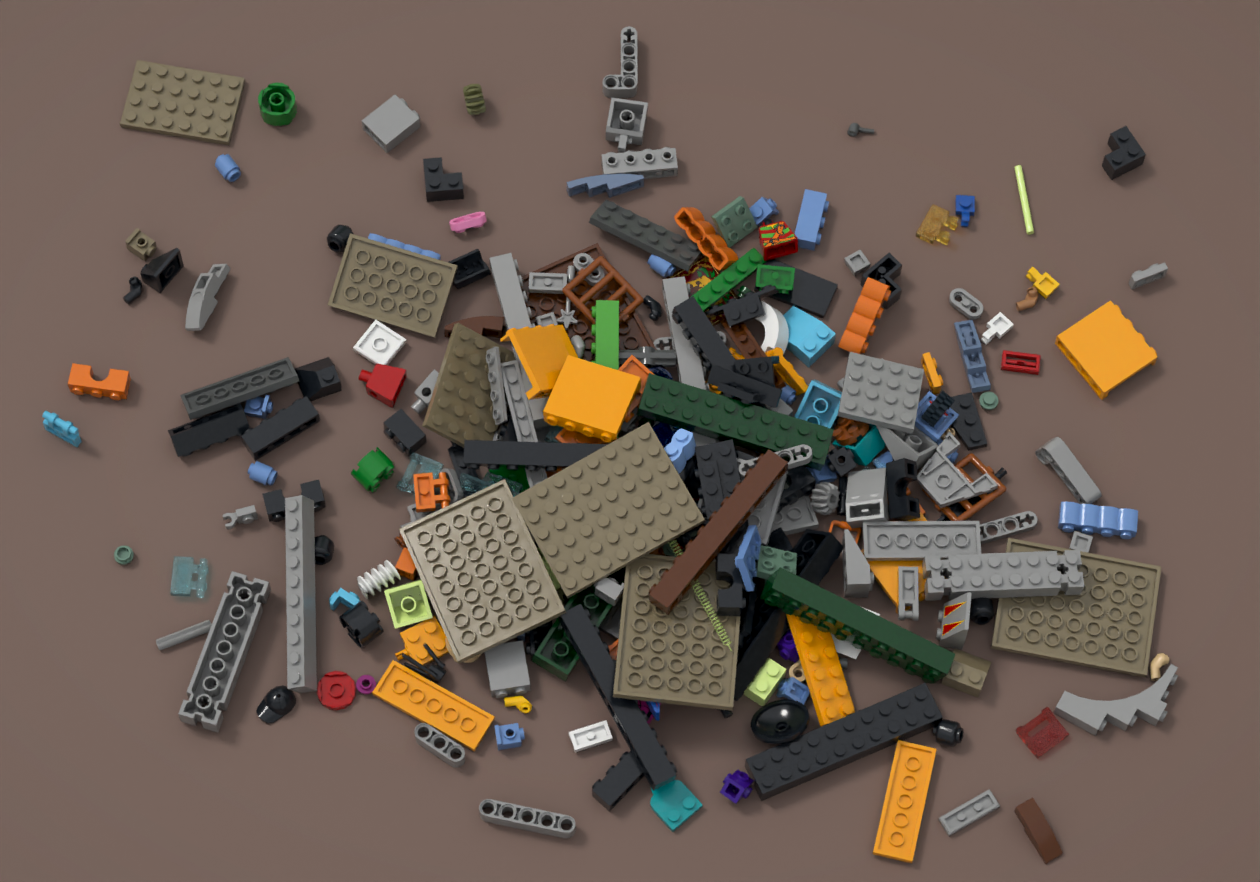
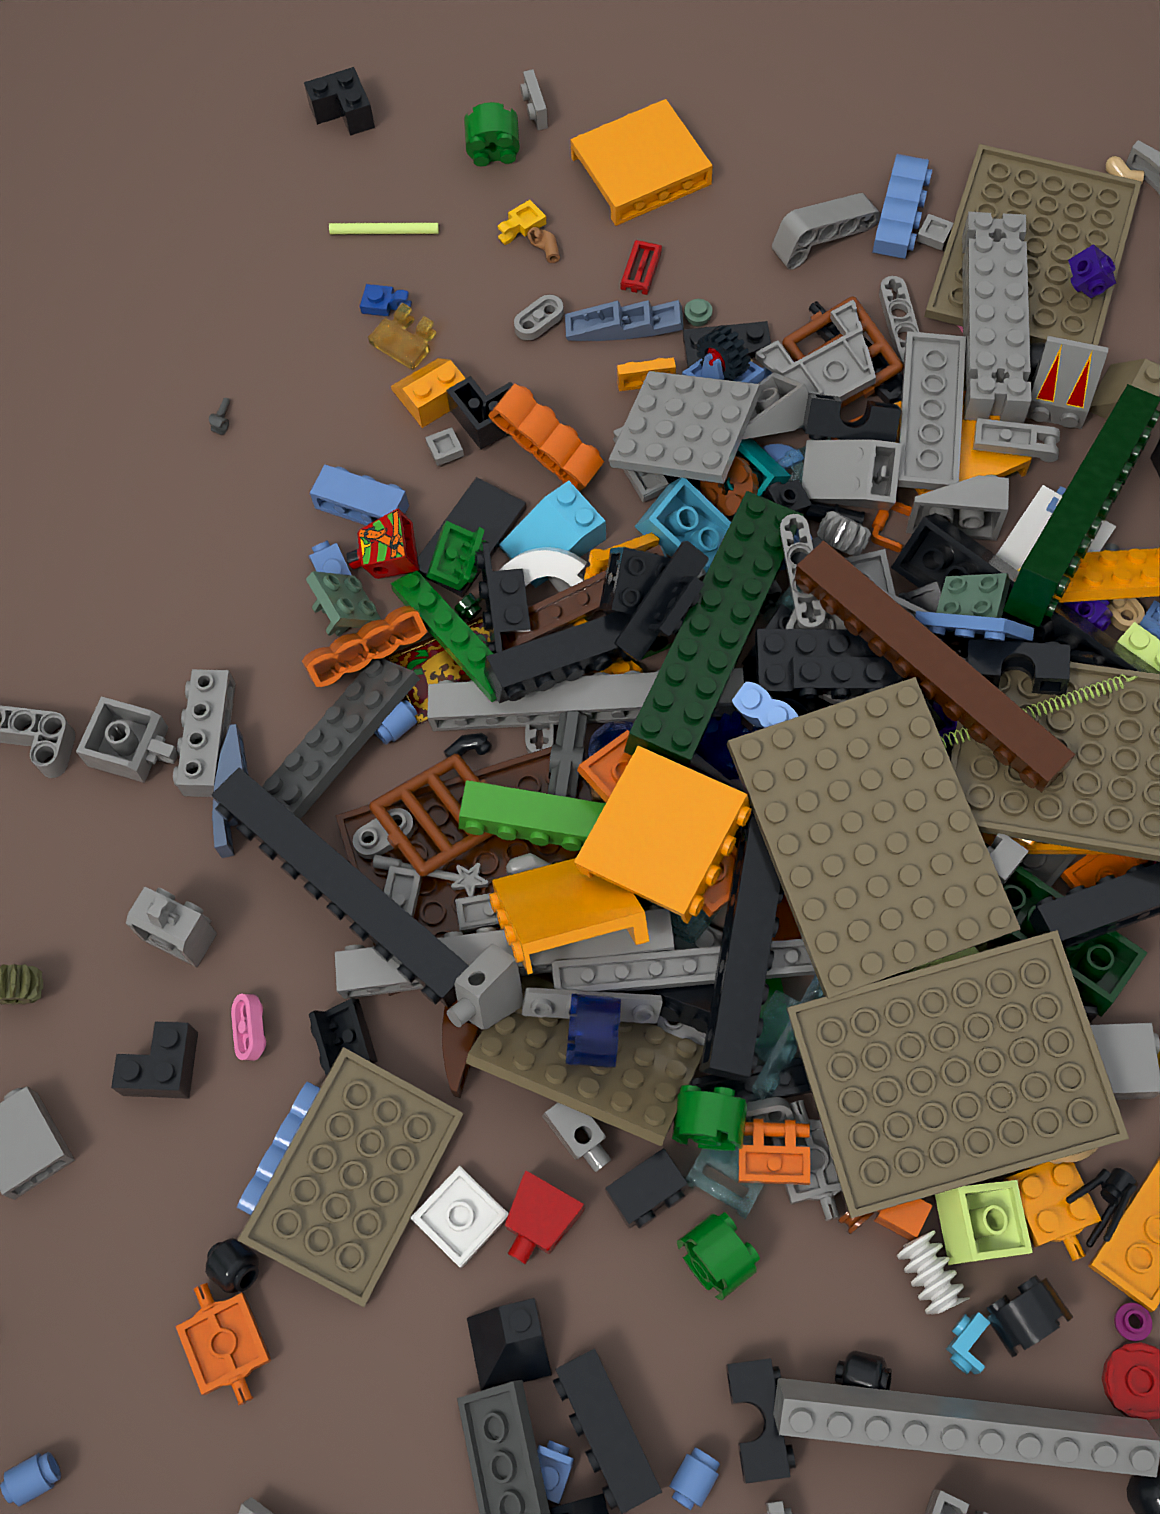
camera: 75 degrees left, 0 degrees up
(302, 242) = (223, 1344): none -> orange plate
(443, 453) = (710, 1118): none -> green brick
(478, 383) = (593, 1030): none -> clear blue brick
(492, 326) = (487, 990): none -> light grey torso
(517, 170) = (170, 925): none -> light grey hinge
(547, 247) = (342, 886): none -> black brick
(899, 244) = (425, 390): none -> light orange slope
(997, 326) = (584, 282): white plate -> none
(1049, 634) = (1092, 271): none -> dark purple brick
(1106, 251) = (491, 134): none -> green brick

